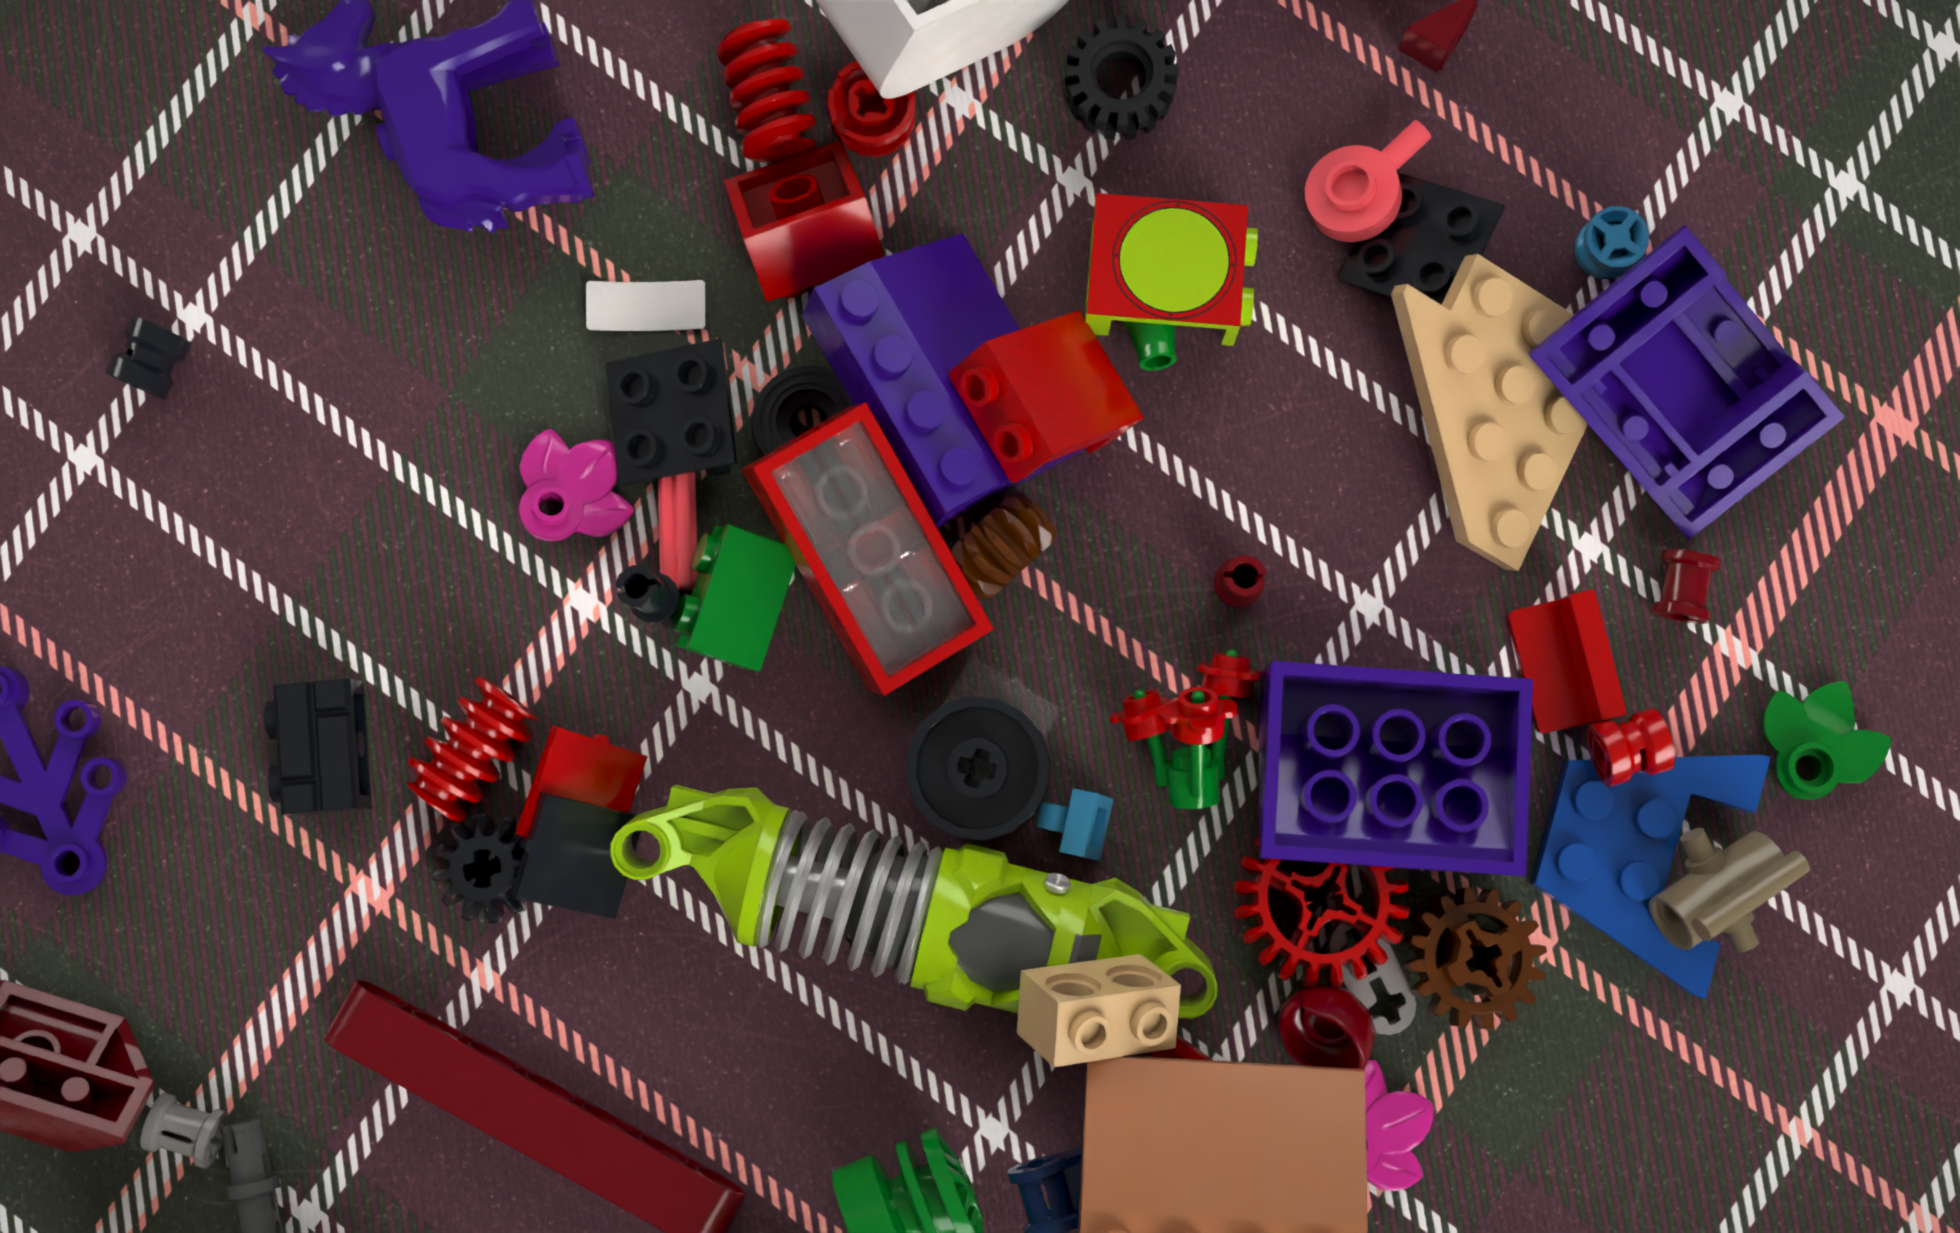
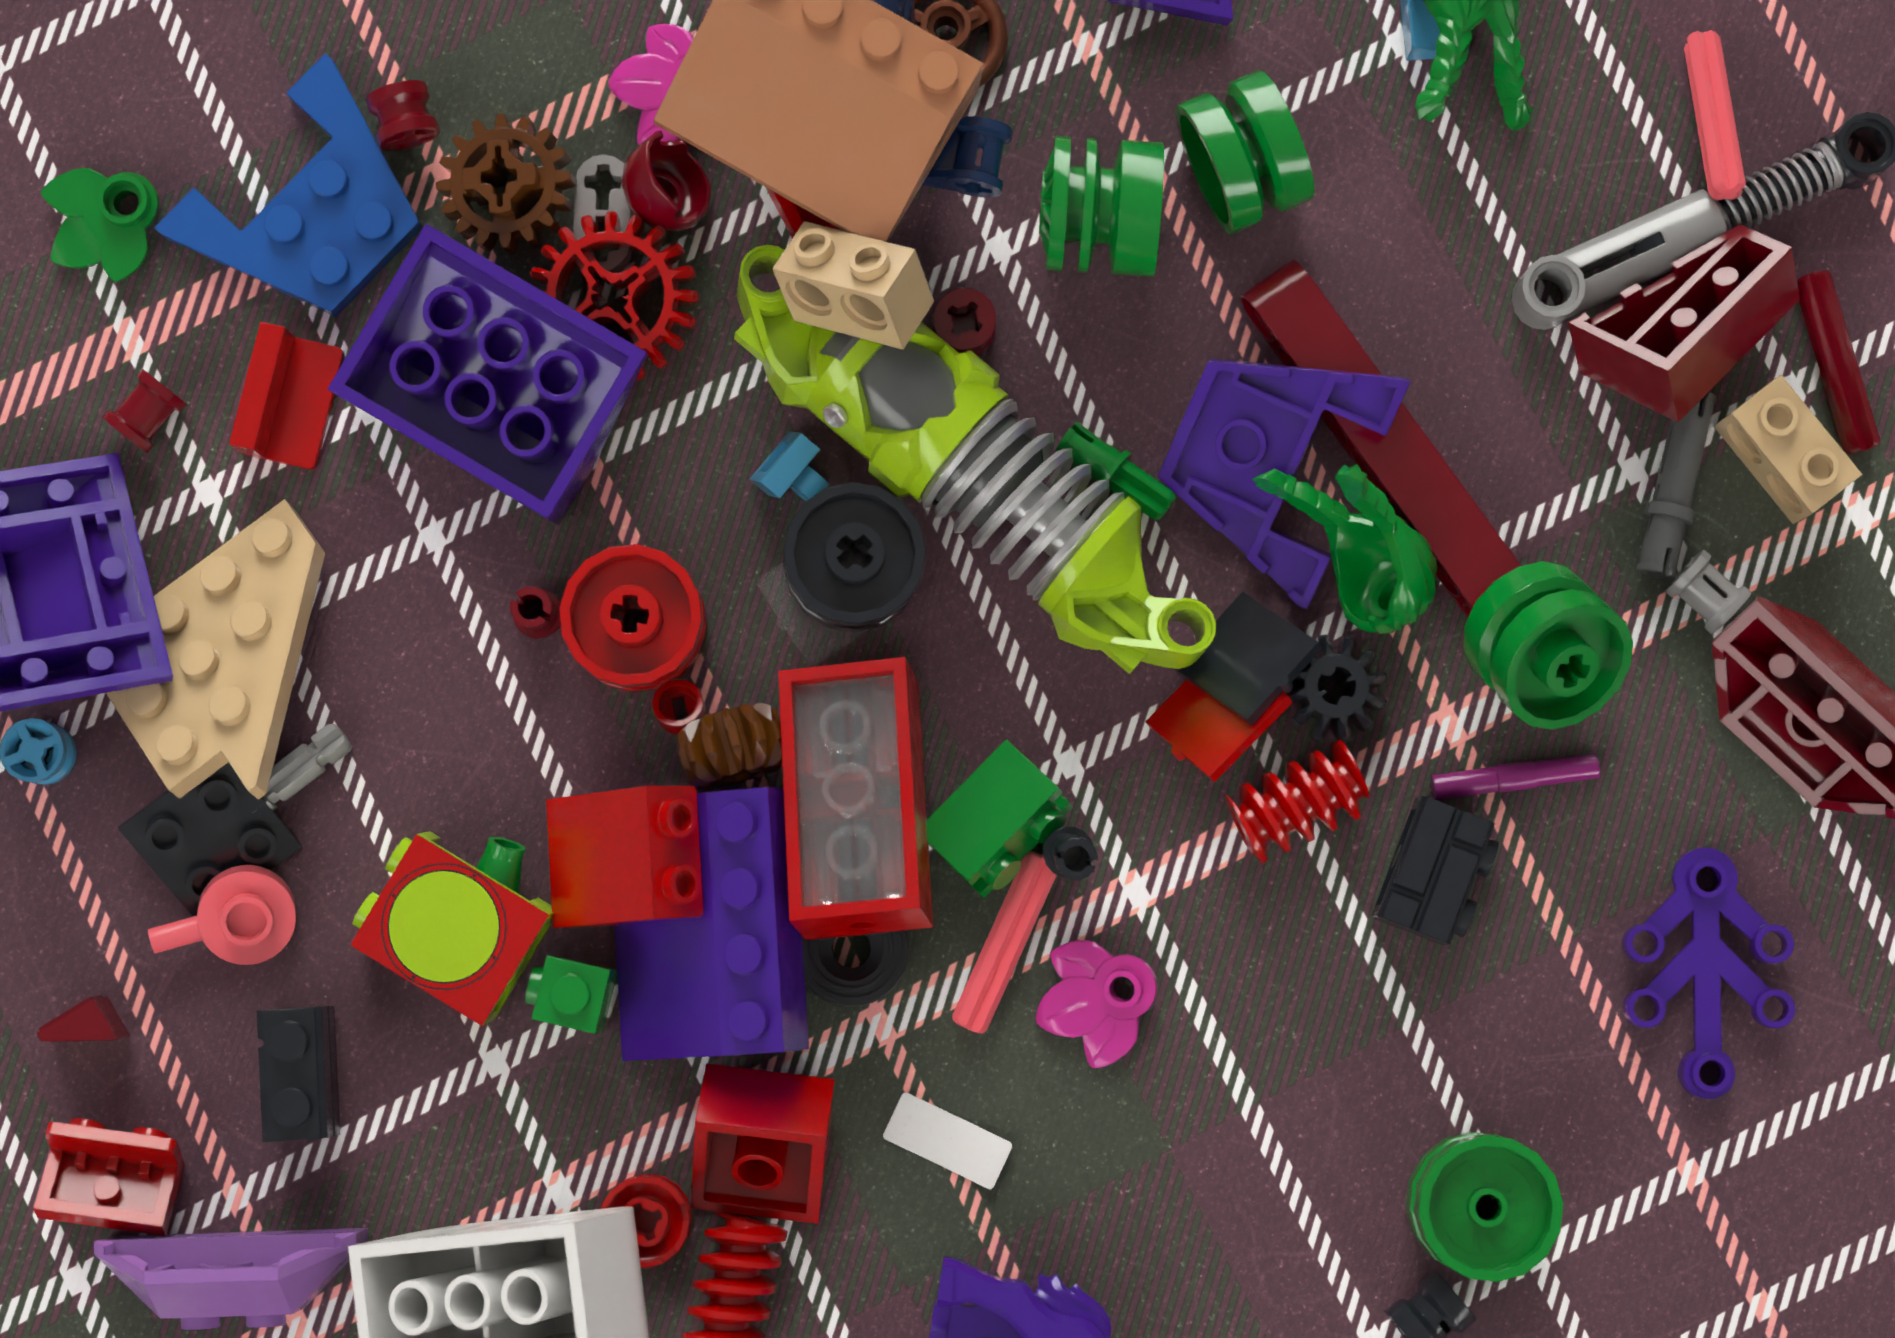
camera: 155 degrees left, 0 degrees up
(138, 471) = (1521, 1219): none -> green wheel
(288, 872) = (1515, 776): none -> magenta piece
(302, 1001) = (1547, 645): none -> green wheel
(498, 1003) = (1378, 560): none -> green hair
(671, 413) = (972, 1020): black hinge -> none
(671, 1057) = (1261, 420): none -> dark purple wing
(781, 970) = (1114, 465): none -> green axle
(989, 1029) = (962, 331): none -> dark red wheel
(1034, 263) = (571, 994): none -> green brick
(1080, 551) = (664, 708): none -> red hinge
(1120, 42) = (362, 1137): black tyre -> none
(1155, 577) = (624, 582): none -> red wheel
(1195, 719) = (641, 501): red plant -> none
(1235, 80) = (298, 1074): none -> black brick
(1372, 349) = (306, 764): none -> light grey axle
(1603, 975) = (402, 115): none -> dark red wheel
(1630, 747) = (273, 292): red wheel -> none
(1723, 889) = (259, 133): dark tan pin -> none

